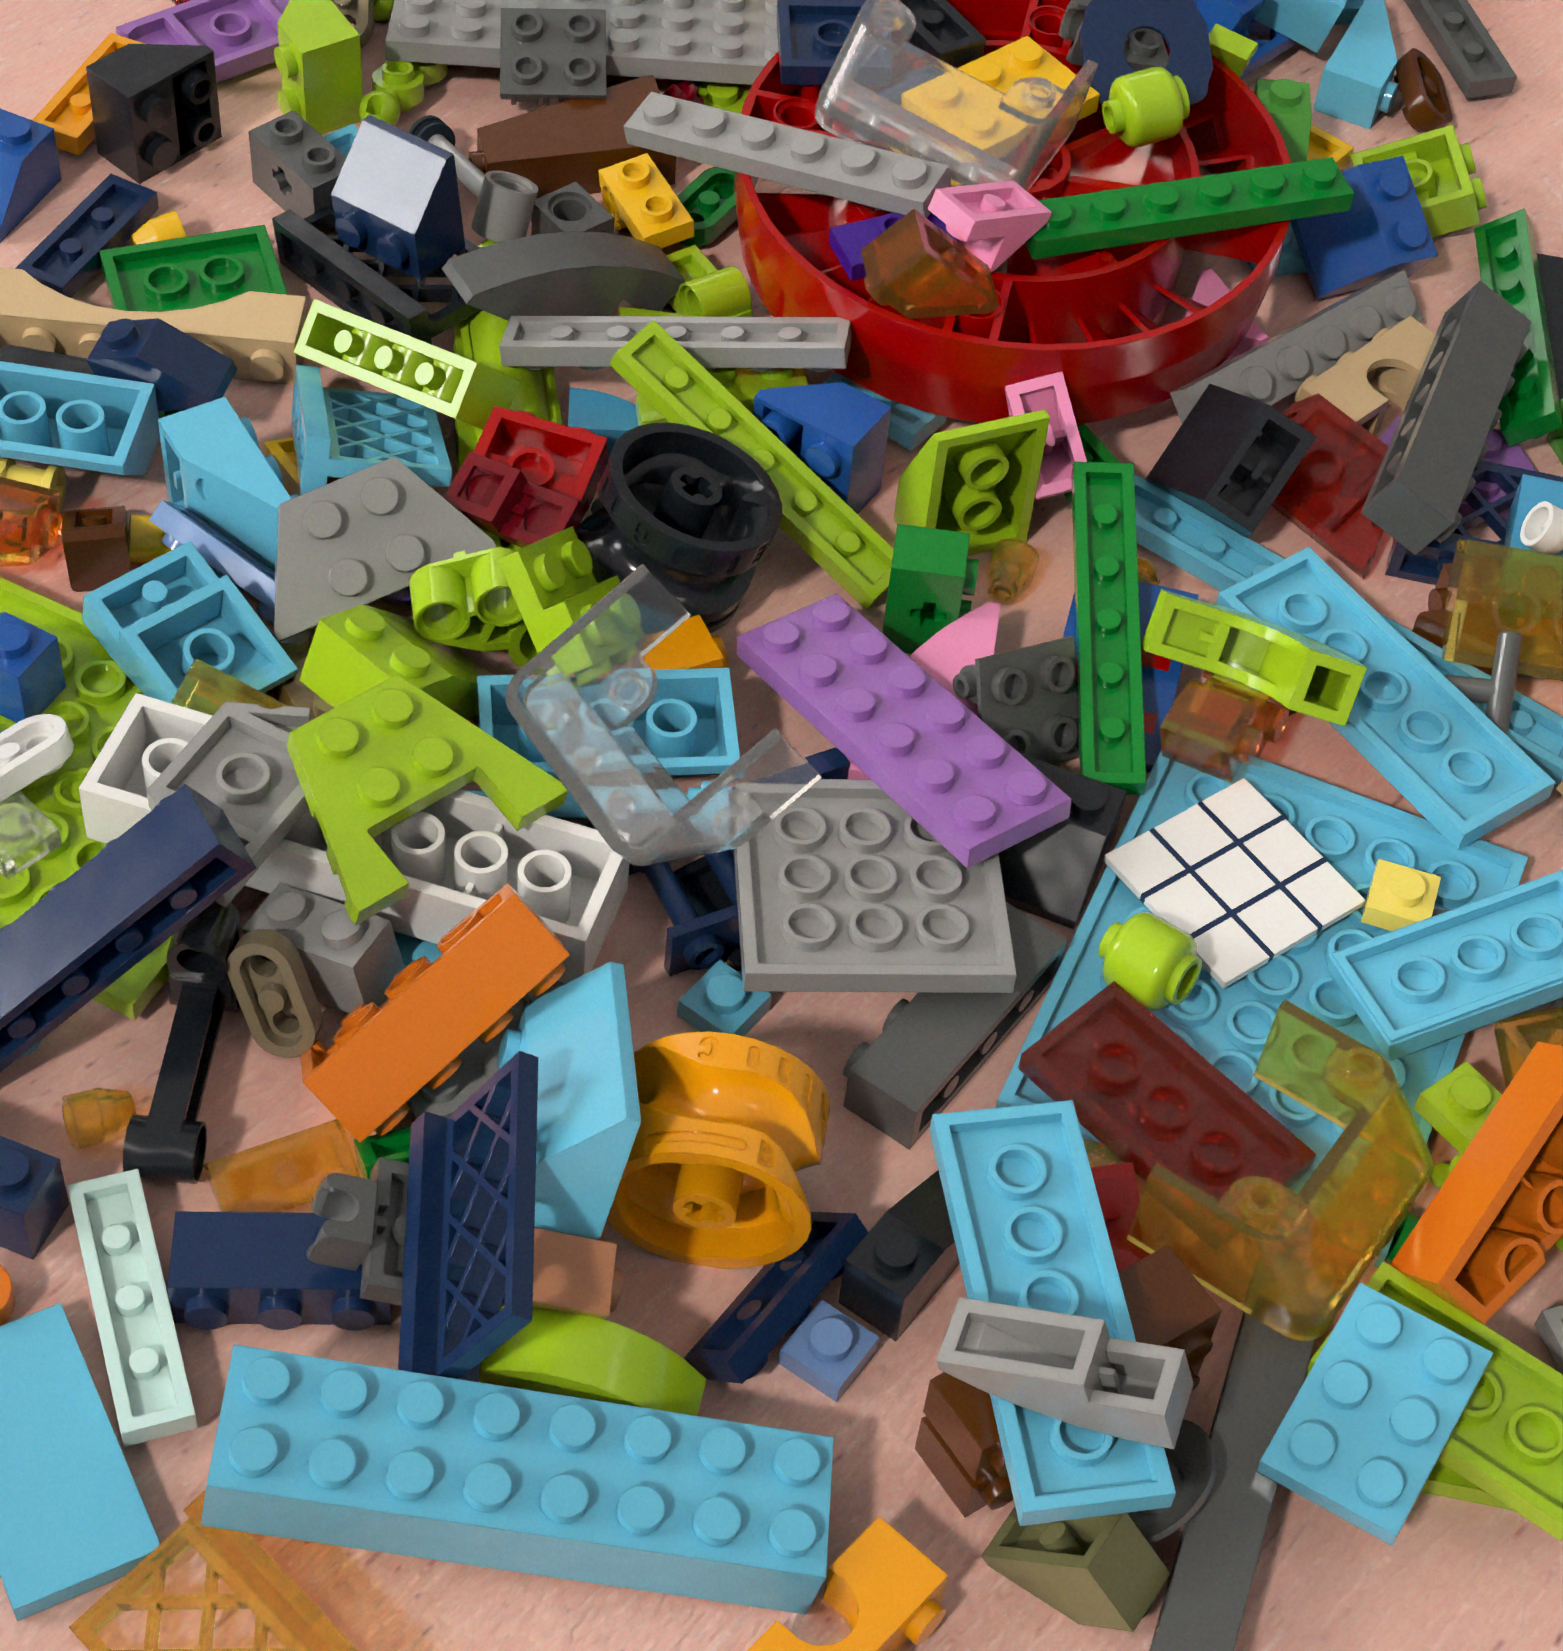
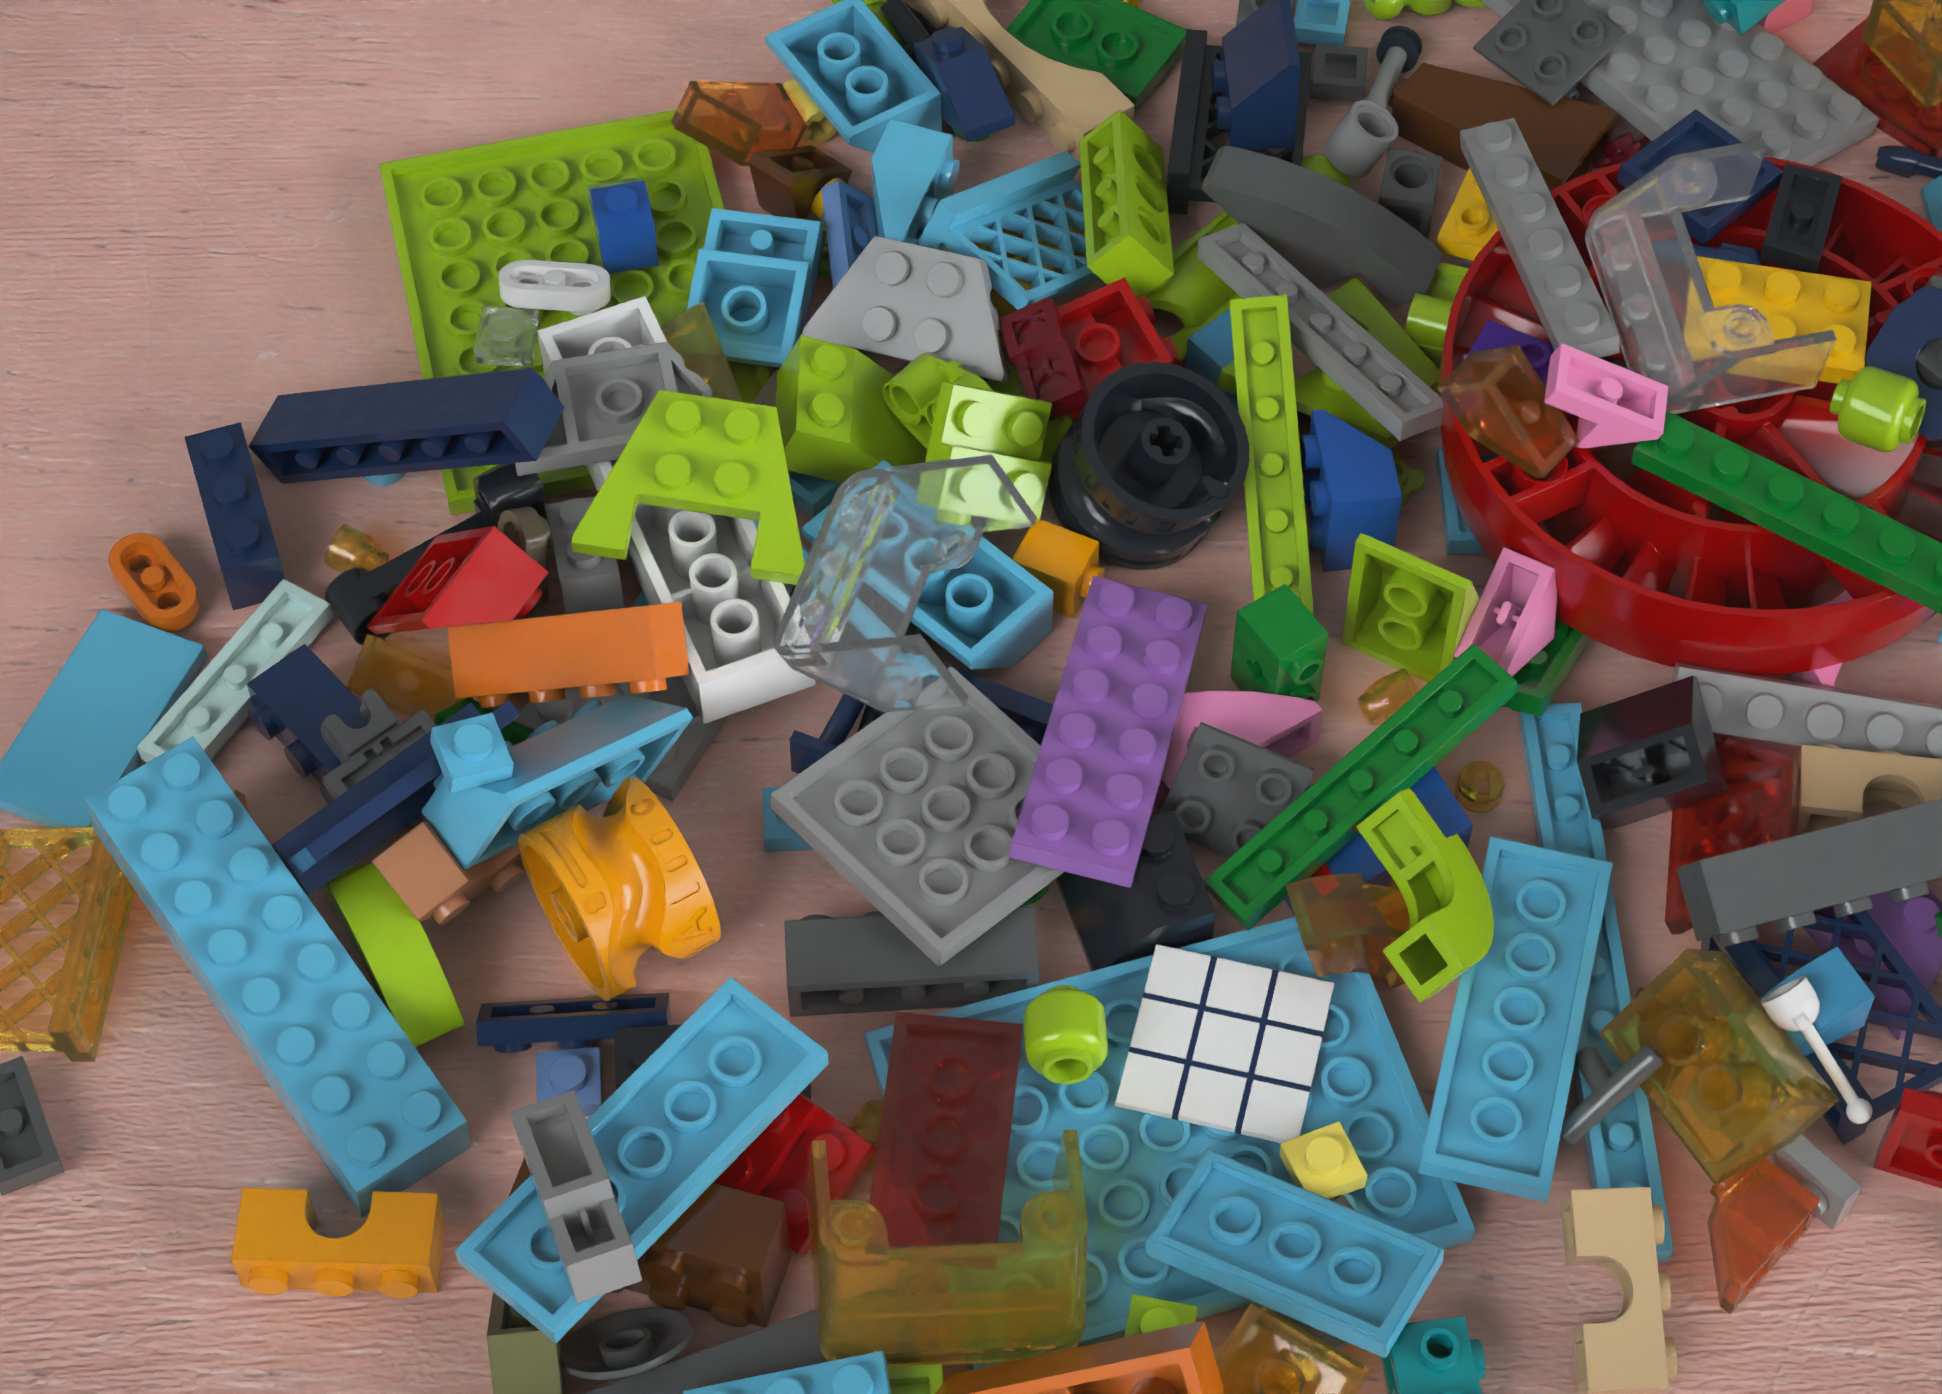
camera: 55 degrees right, 5 degrees up
(282, 1036) = (463, 582): none -> red slope
(553, 1113) = (471, 752): none -> medium azure plate

